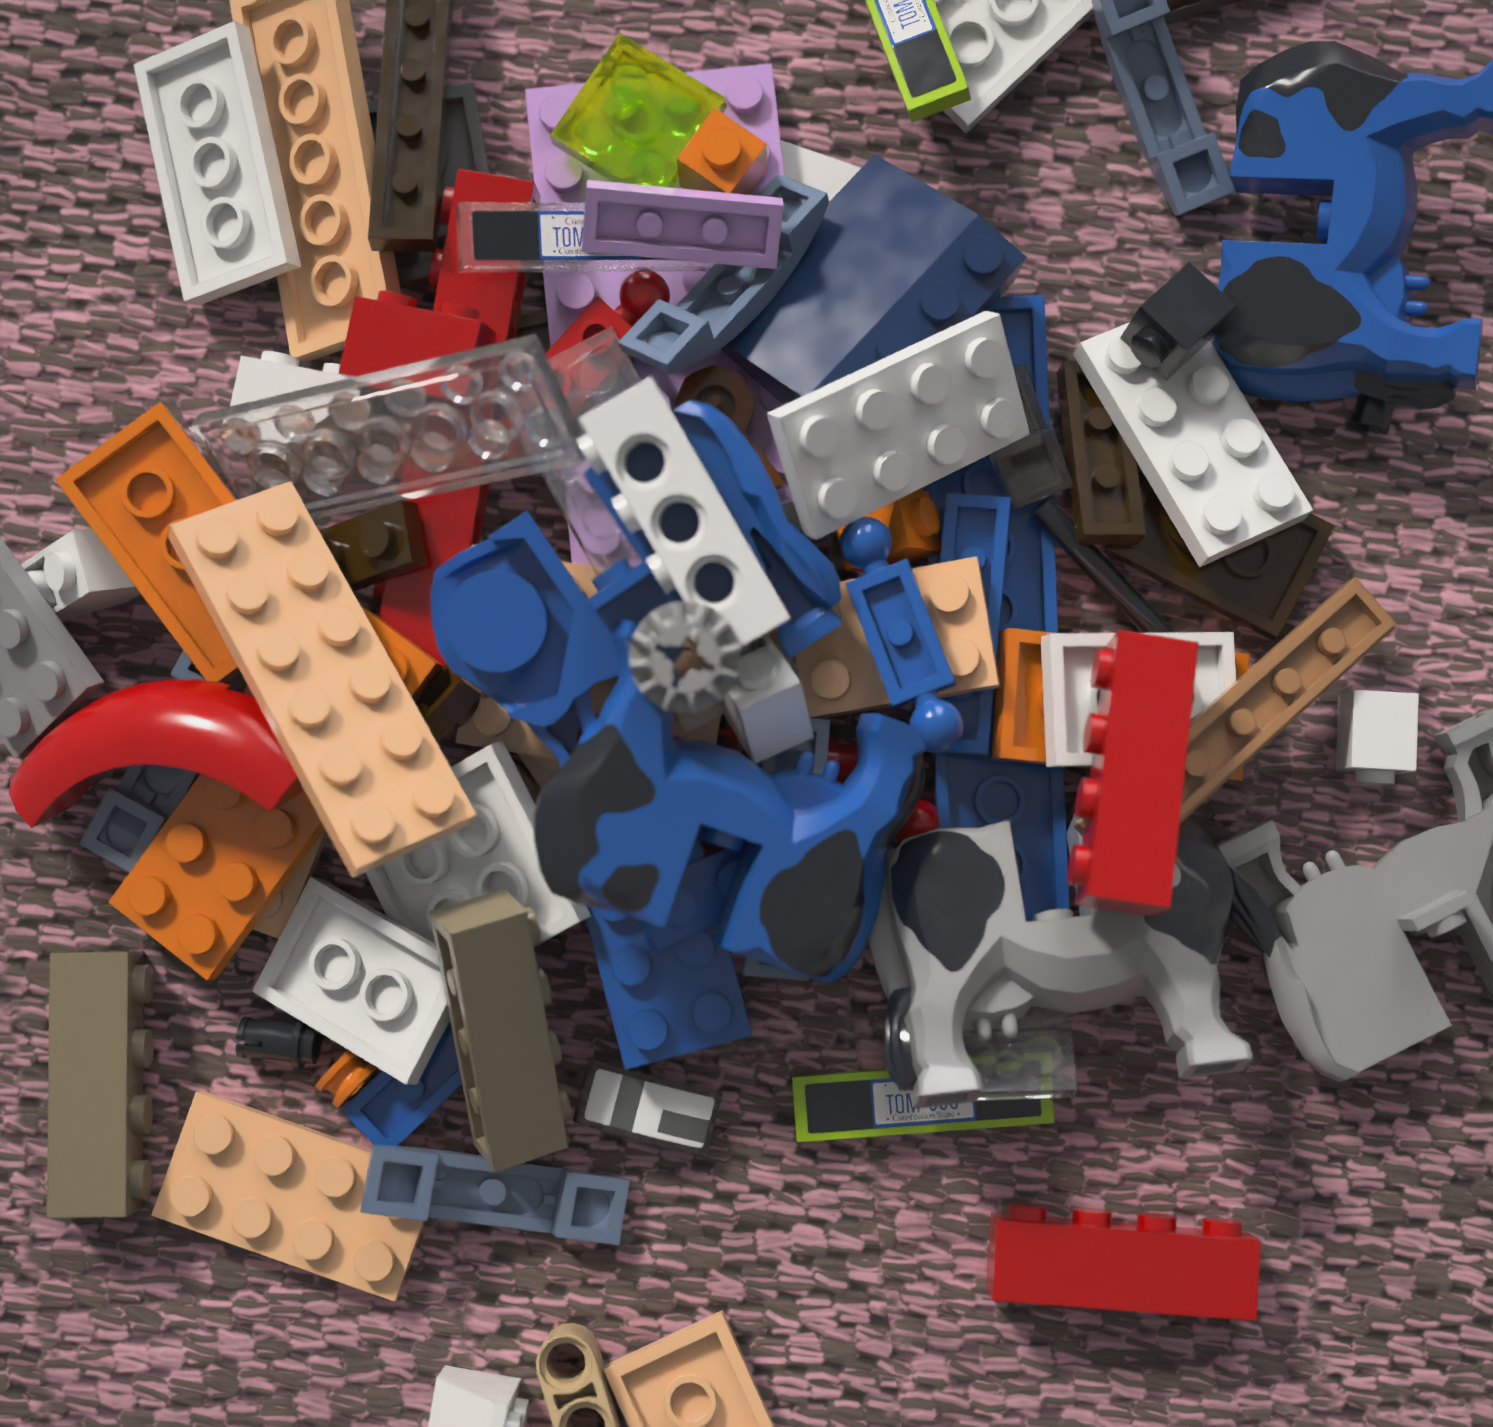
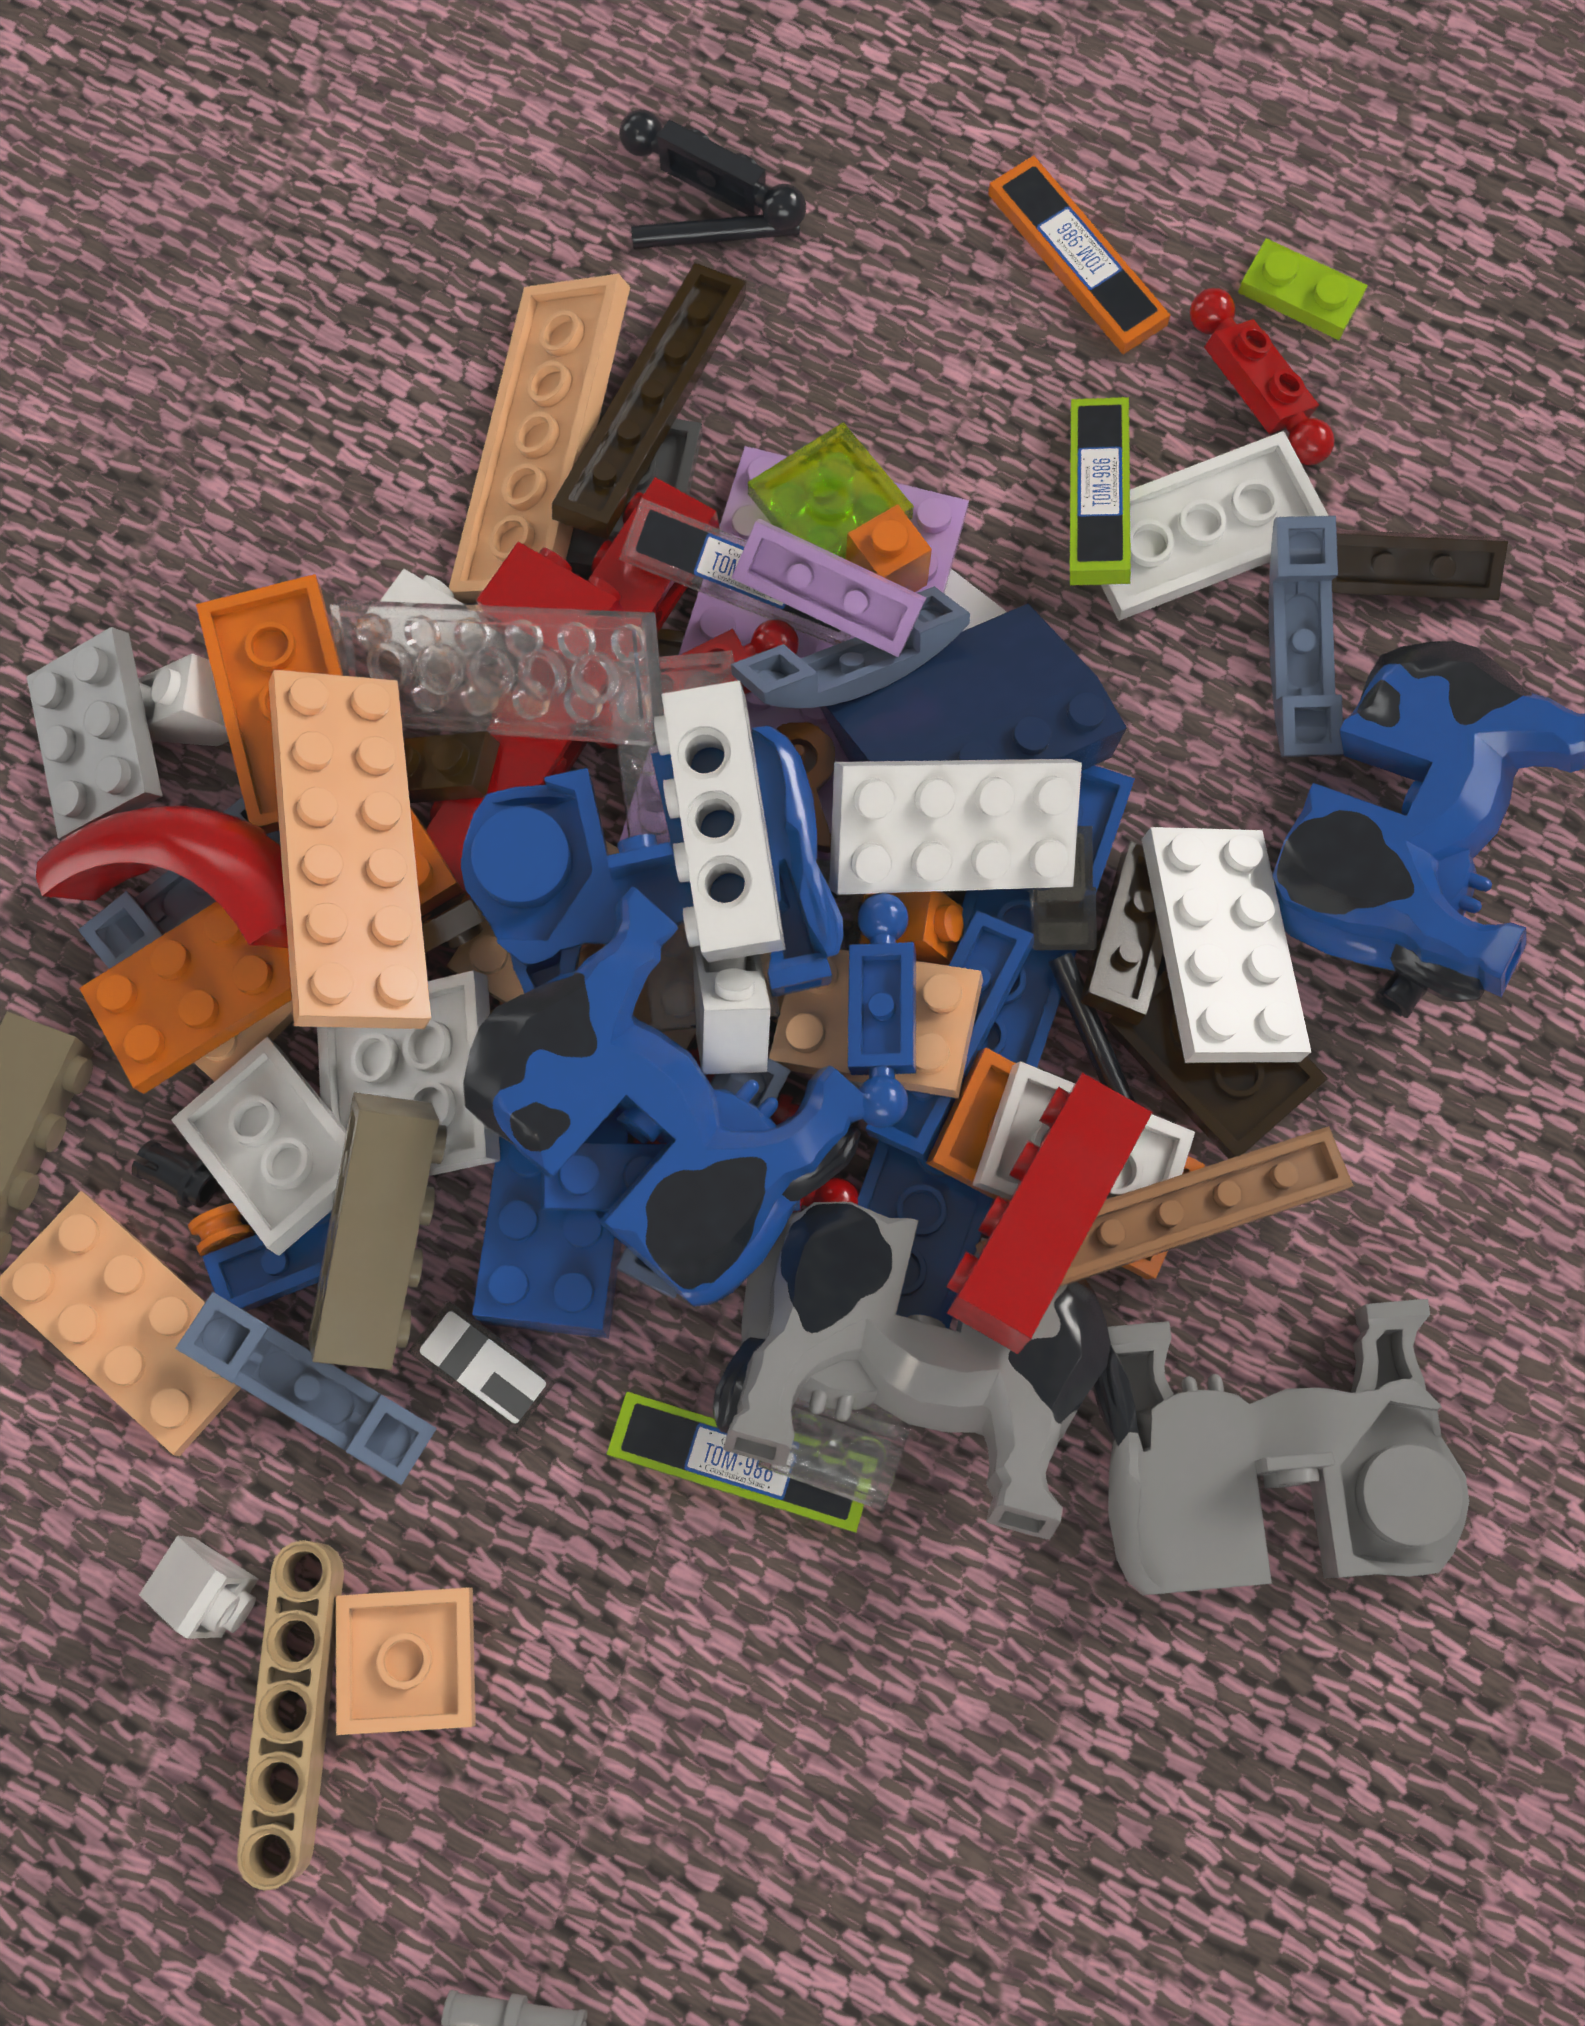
camera: 20 degrees right, 10 degrees down
(217, 164) = (454, 411): white plate -> none
(671, 626) = (671, 967): light grey gear -> none
(1123, 1264) = (869, 1696): red brick -> none
(1177, 321) = (1244, 836): black brick -> none
(1377, 735) = (1299, 1285): white brick -> none

